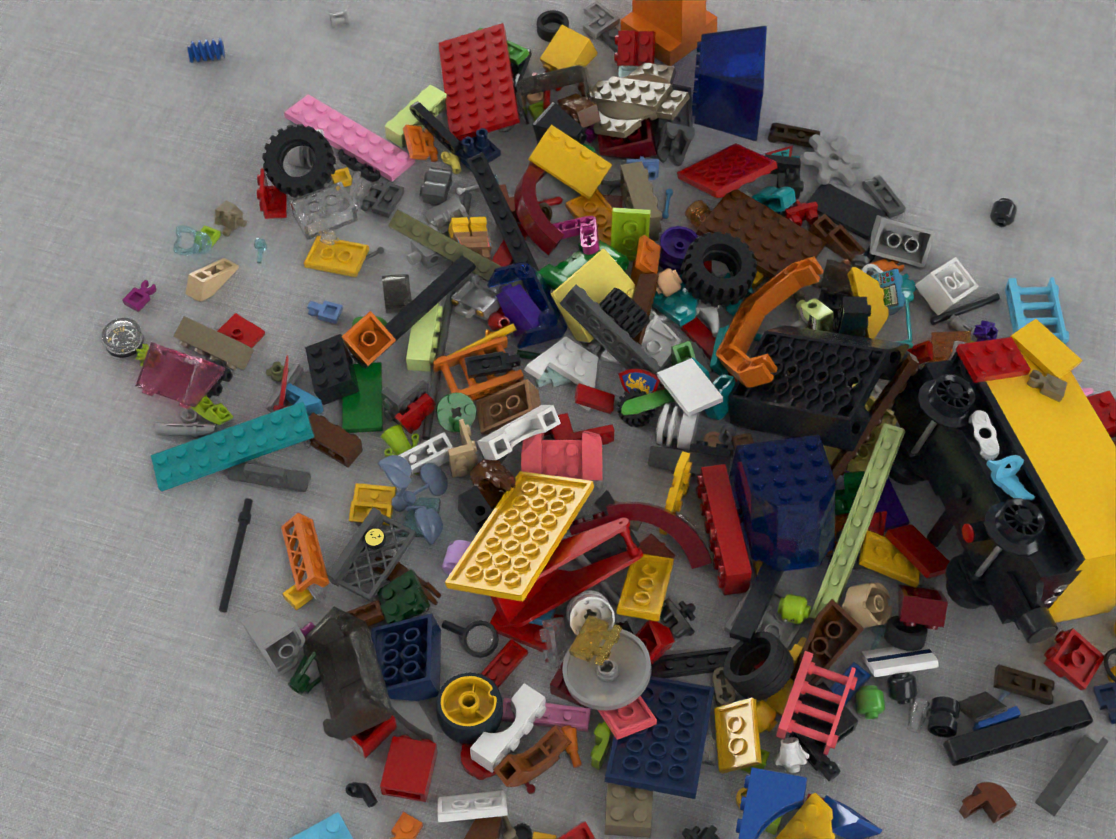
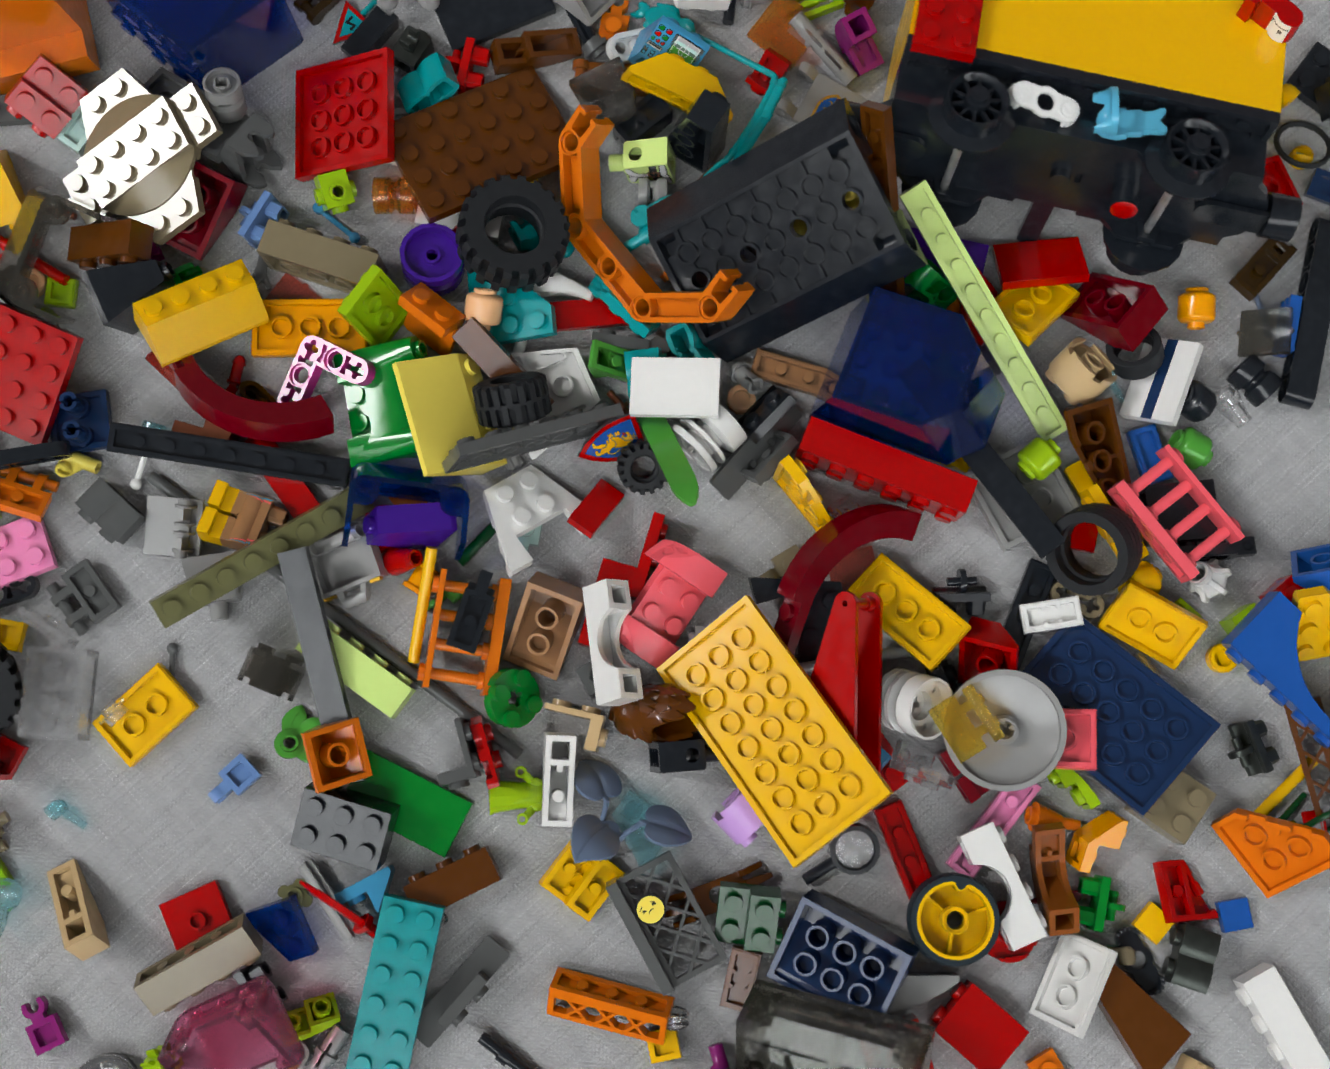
camera: 65 degrees left, 25 degrees up
(256, 374) = (285, 927): none -> clear blue wing
(536, 802) = (1100, 901): none -> green hips
(581, 777) = (1104, 830): none -> light orange slope
(682, 189) = (324, 194): none -> lime brick
(694, 112) = (225, 94): none -> light grey wheel
(701, 672) = (1051, 615): none -> white plate
(964, 657) = (1196, 307): none -> light orange head

